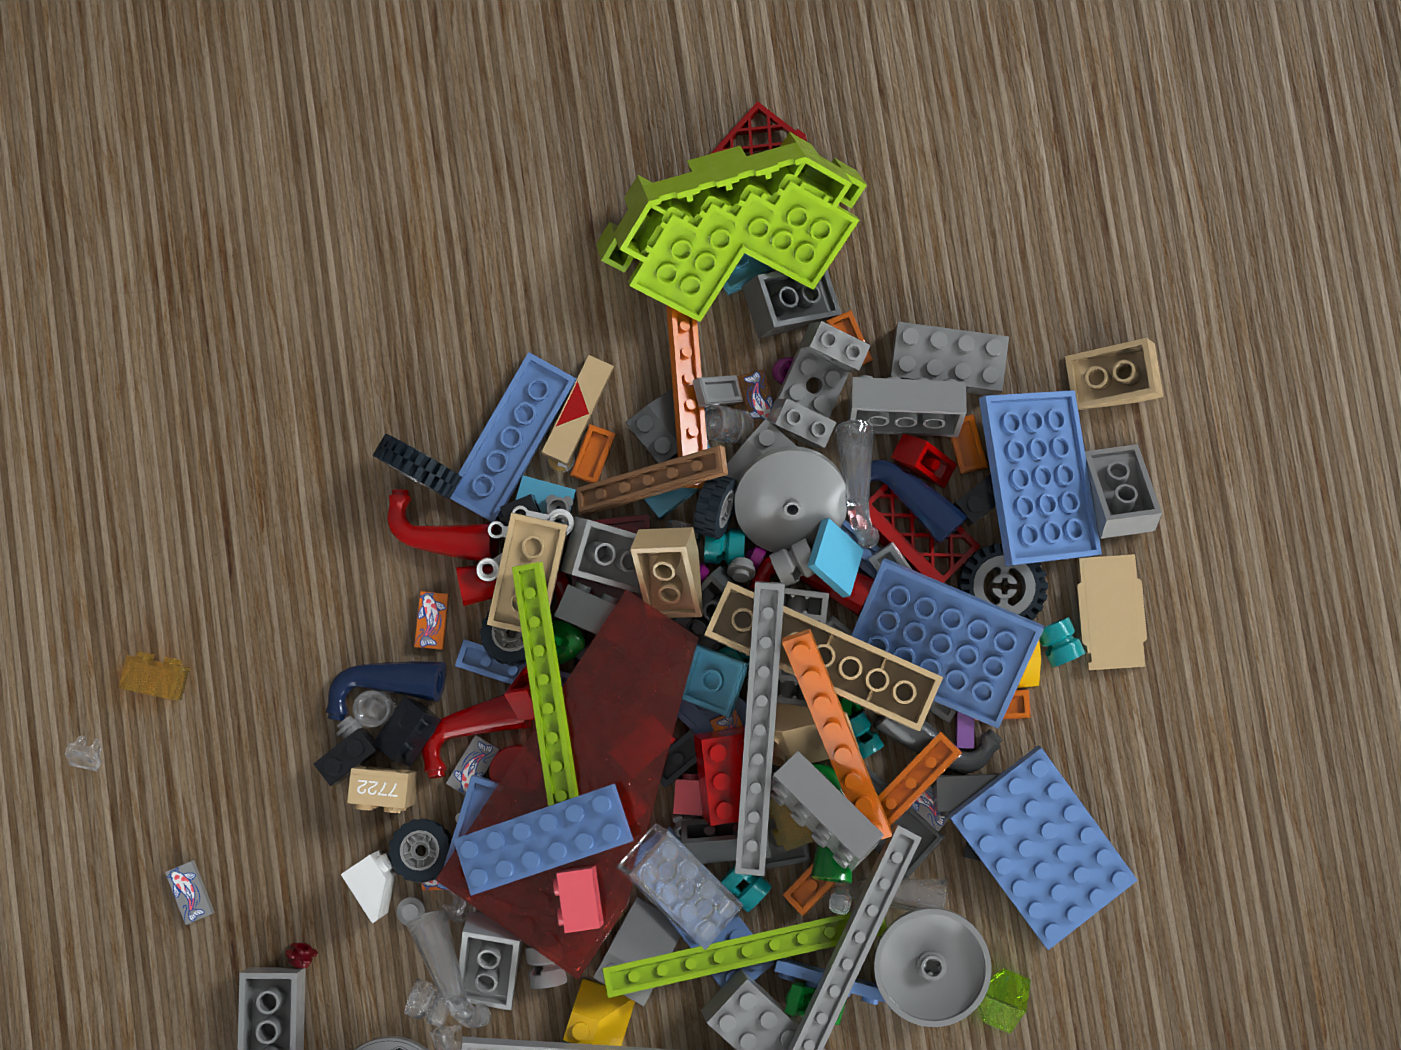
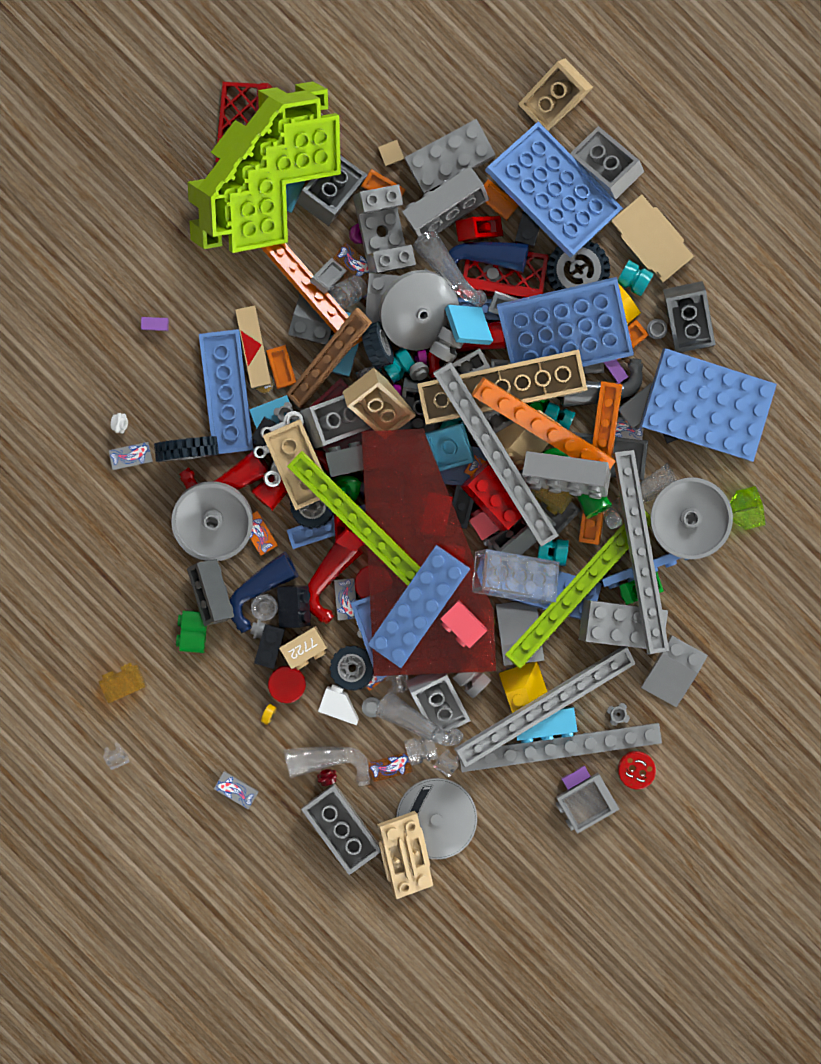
camera: 40 degrees left, 5 degrees up
(275, 676) = (192, 632): none -> green brick
(289, 833) = (268, 714): none -> yellow tile
(300, 922) = (311, 759): none -> clear animal
(326, 647) = (210, 592): none -> dark grey brick
(332, 816) = (286, 684): none -> red head
(354, 431) = (130, 456): none -> tile
(369, 386) = (119, 423): none -> white plate
(380, 995) = (390, 767): none -> tile
(388, 568) = (212, 521): none -> light grey dish
(489, 307) = (155, 324): none -> medium lavender piece
(885, 309) = (391, 153): none -> tan tile
(903, 520) = (492, 273): none -> light grey plate
(1044, 717) = (657, 329): none -> light grey plate
(1091, 730) = (689, 317): none -> dark grey slope

